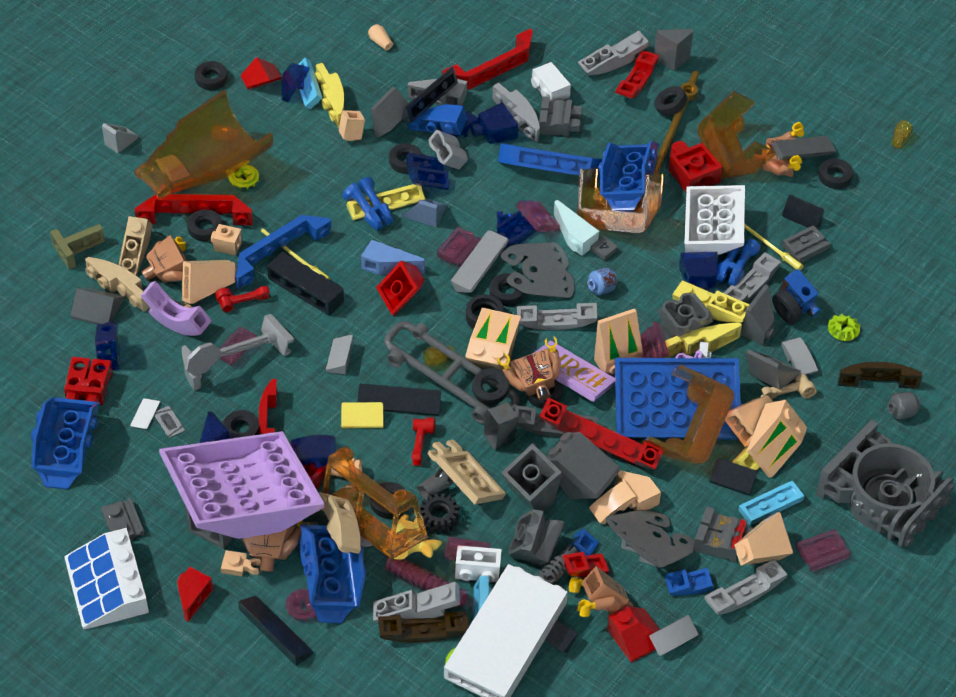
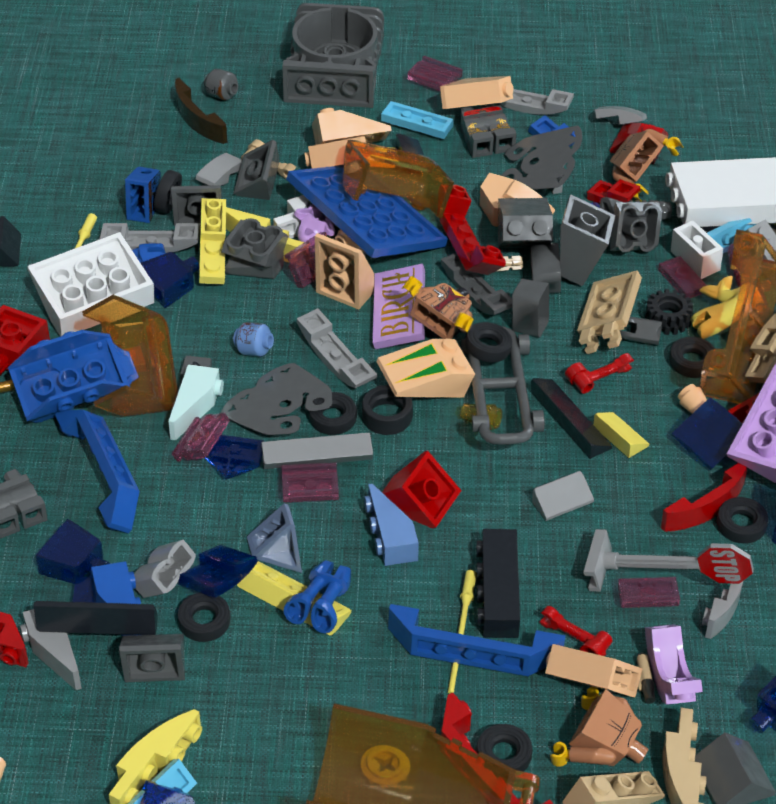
camera: 125 degrees left, 5 degrees down
(226, 239) = (509, 702): light nougat brick -> none
(351, 125) = (202, 690): light nougat brick -> none
(519, 109) = (26, 542): light grey slope -> none
(806, 244) = (54, 223): dark grey plate -> none
(847, 334) = (159, 158): lime gear -> none

